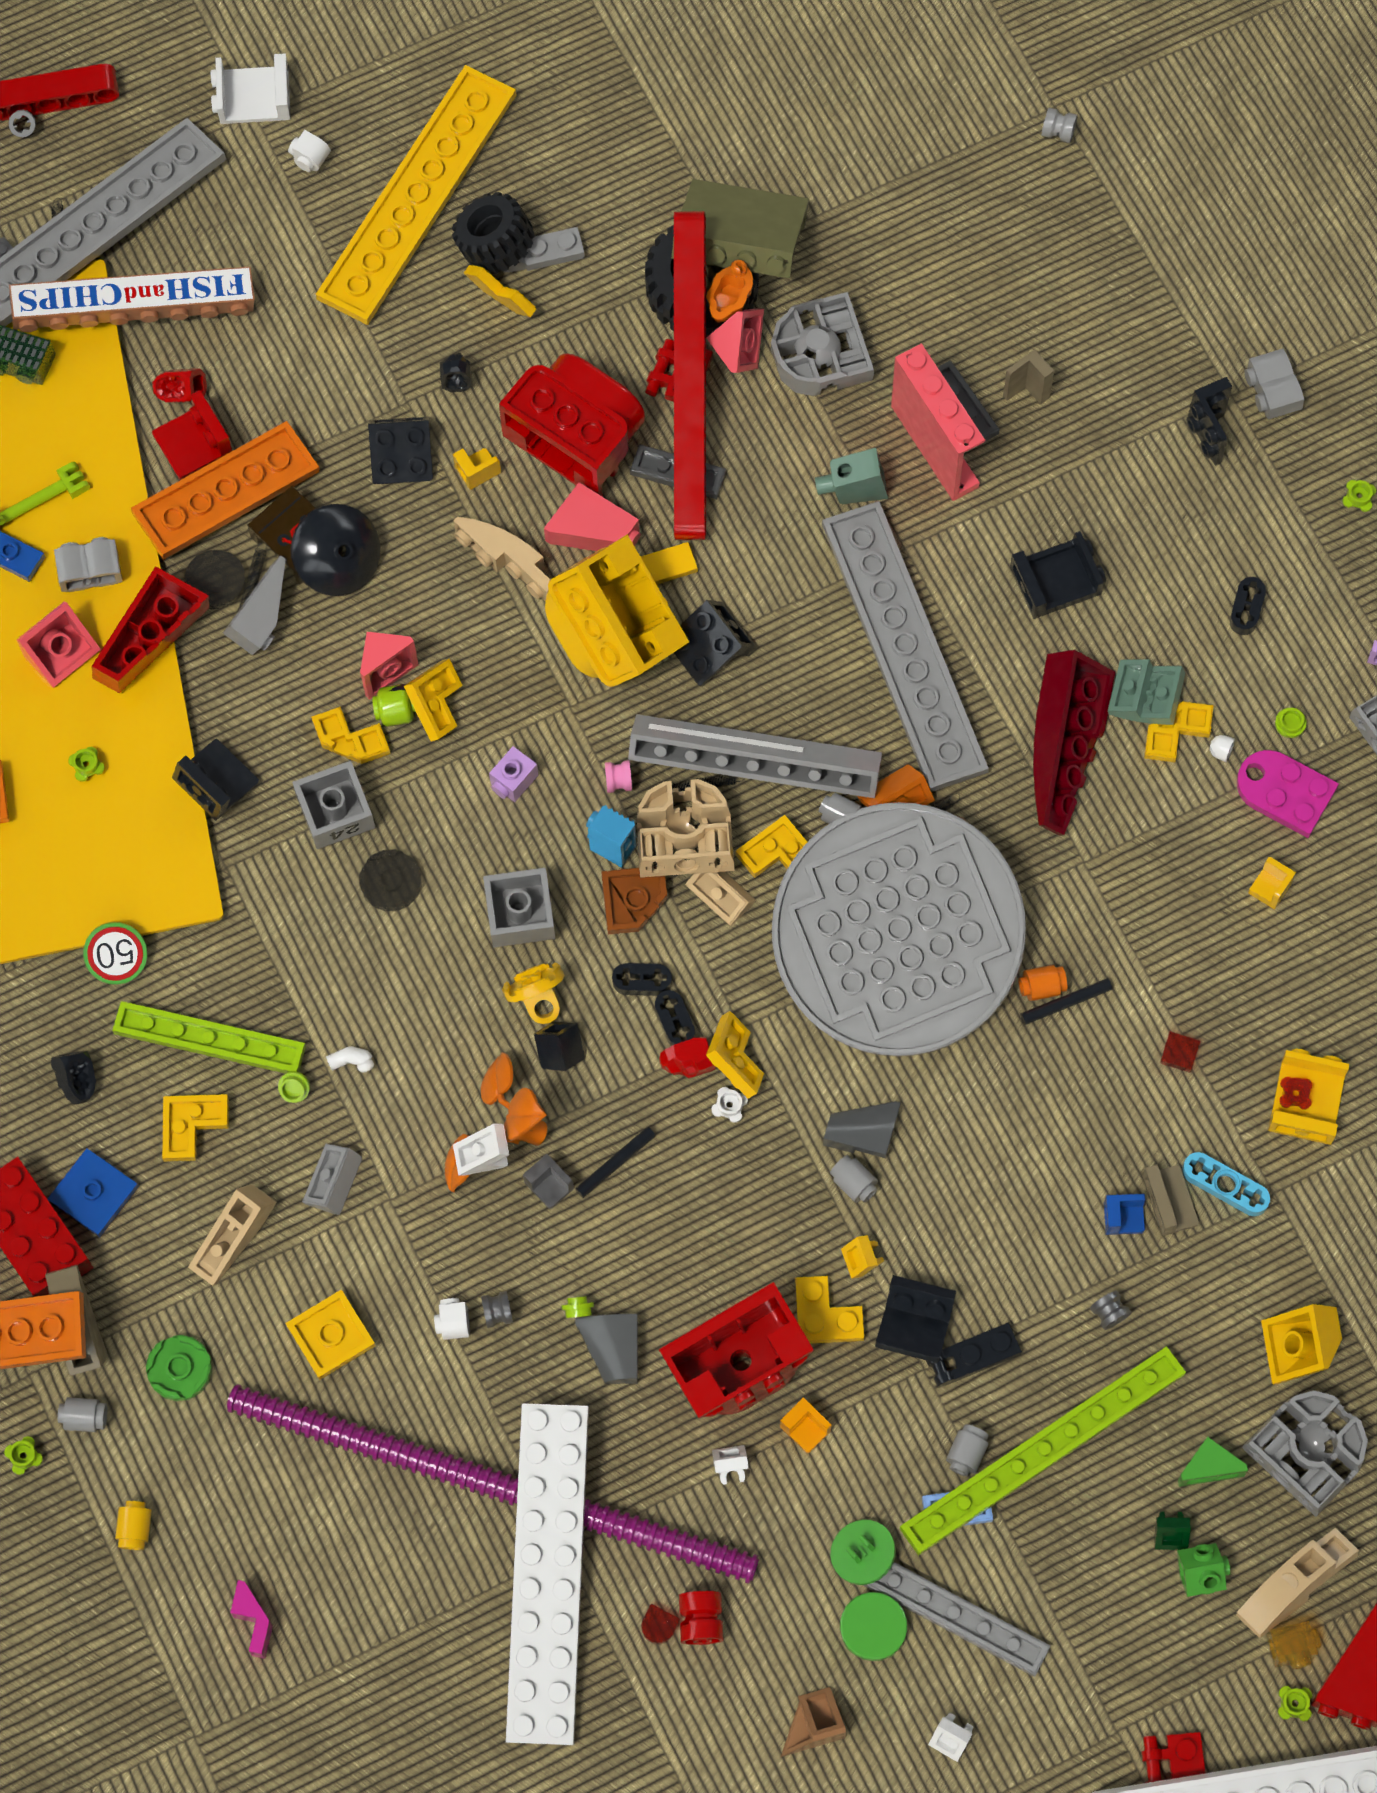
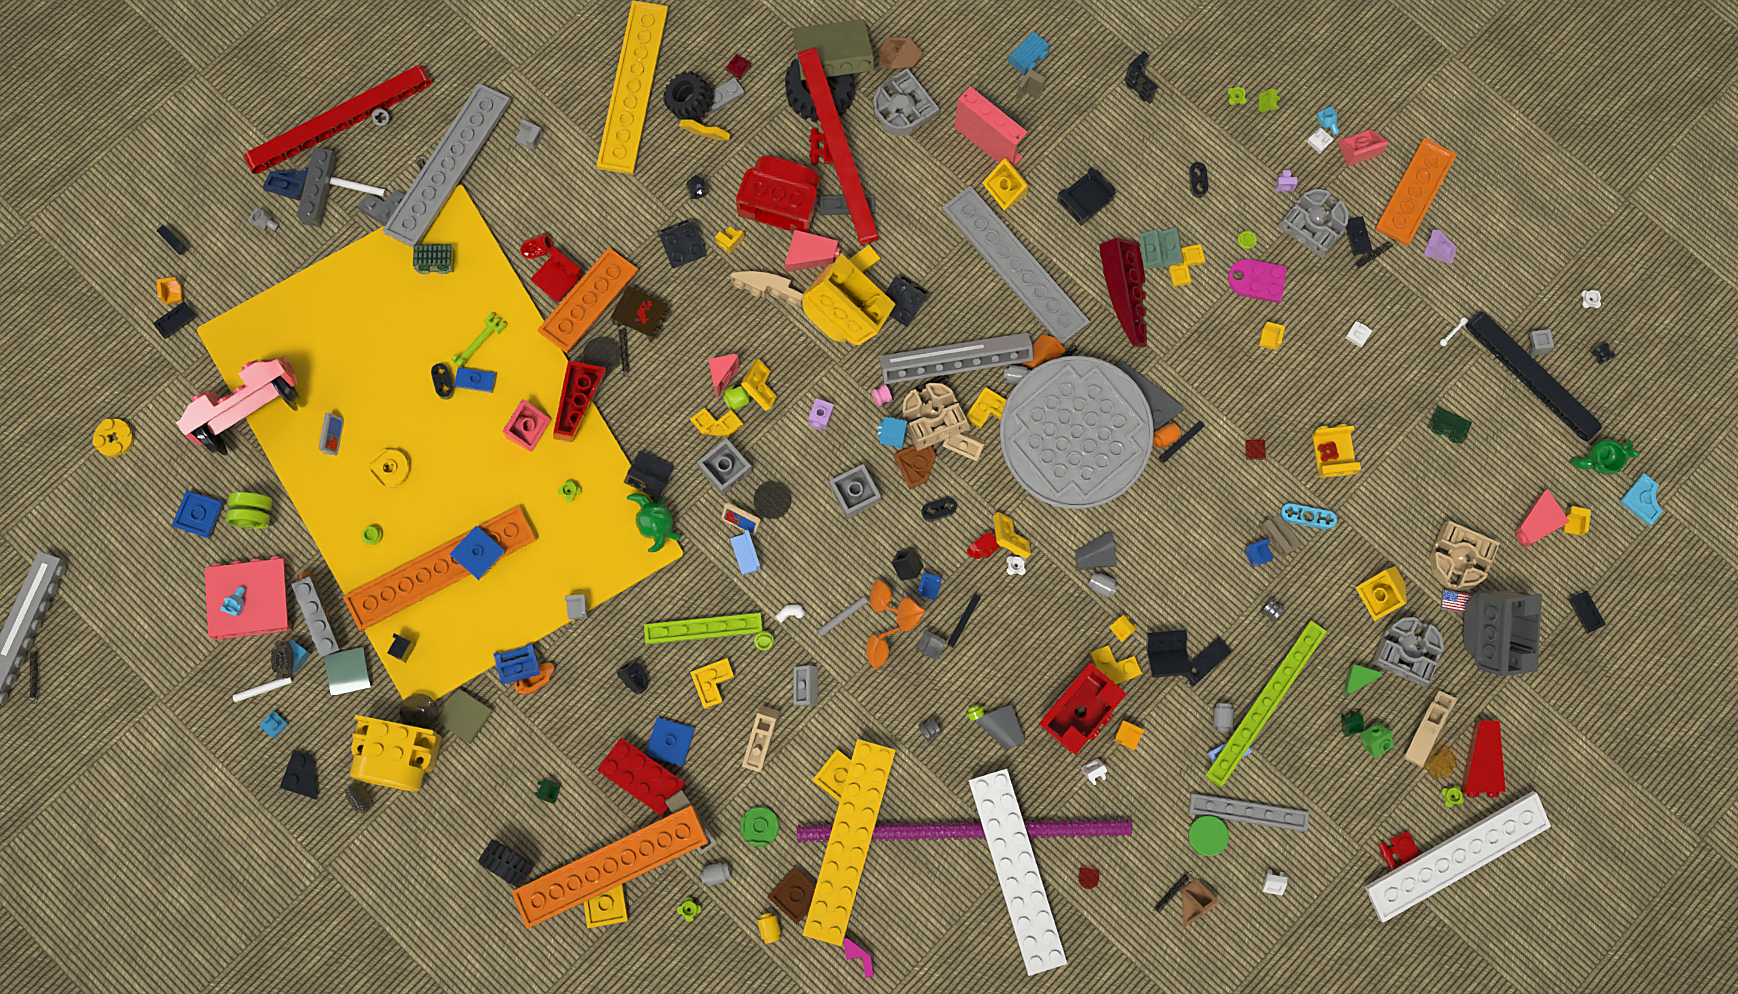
camera: 25 degrees left, 5 degrees up
(30, 940) = (576, 606): none -> light grey panel
(88, 565) = (525, 371): light grey brick -> none
(115, 953) = (629, 597): piece -> none
(131, 298) = (488, 203): brick -> none
(192, 1491) = (793, 895): none -> reddish brown plate
(194, 849) = (654, 521): none -> green piece
(234, 218) = (529, 135): none -> light grey panel
(251, 92) = (511, 55): white panel -> none
(259, 613) = (636, 367): light grey slope -> none
(302, 1436) = (849, 842): none -> yellow plate
(309, 151) = (559, 81): white plate -> none
(317, 546) = (658, 316): black dish -> none
(317, 947) = (745, 553): none -> light blue panel
(330, 892) = (741, 519): none -> slope
(430, 1091) = (842, 616): none -> light grey bar
(452, 1320) = (907, 744): white plate -> none
(482, 1151) = (891, 642): white slope -> none
(536, 985) = (880, 534): yellow tile -> none
(580, 1090) = (929, 586): none -> blue panel
(590, 212) = (738, 66): none -> dark red tile
(681, 1017) = (963, 530): black beam -> none
(701, 1617) = (1112, 865): red wheel -> none
(730, 291) = (843, 89): orange arm -> none
(739, 340) = (856, 116): coral slope -> none
(787, 1698) = (1168, 897): none -> black piece
(844, 267) = (898, 53): none -> medium nougat slope
(855, 478) = (952, 176): sand green torso -> none
(863, 1552) = (1187, 796): bright green piece -> none
(936, 518) = (1006, 185): none -> yellow slope
(1049, 932) = (1161, 405): none -> dark grey wing
(1050, 328) = (1029, 53): none -> dark azure brick
(1222, 747) = (1214, 266): white hinge -> none
(1275, 384) = (1167, 46): light grey brick -> none

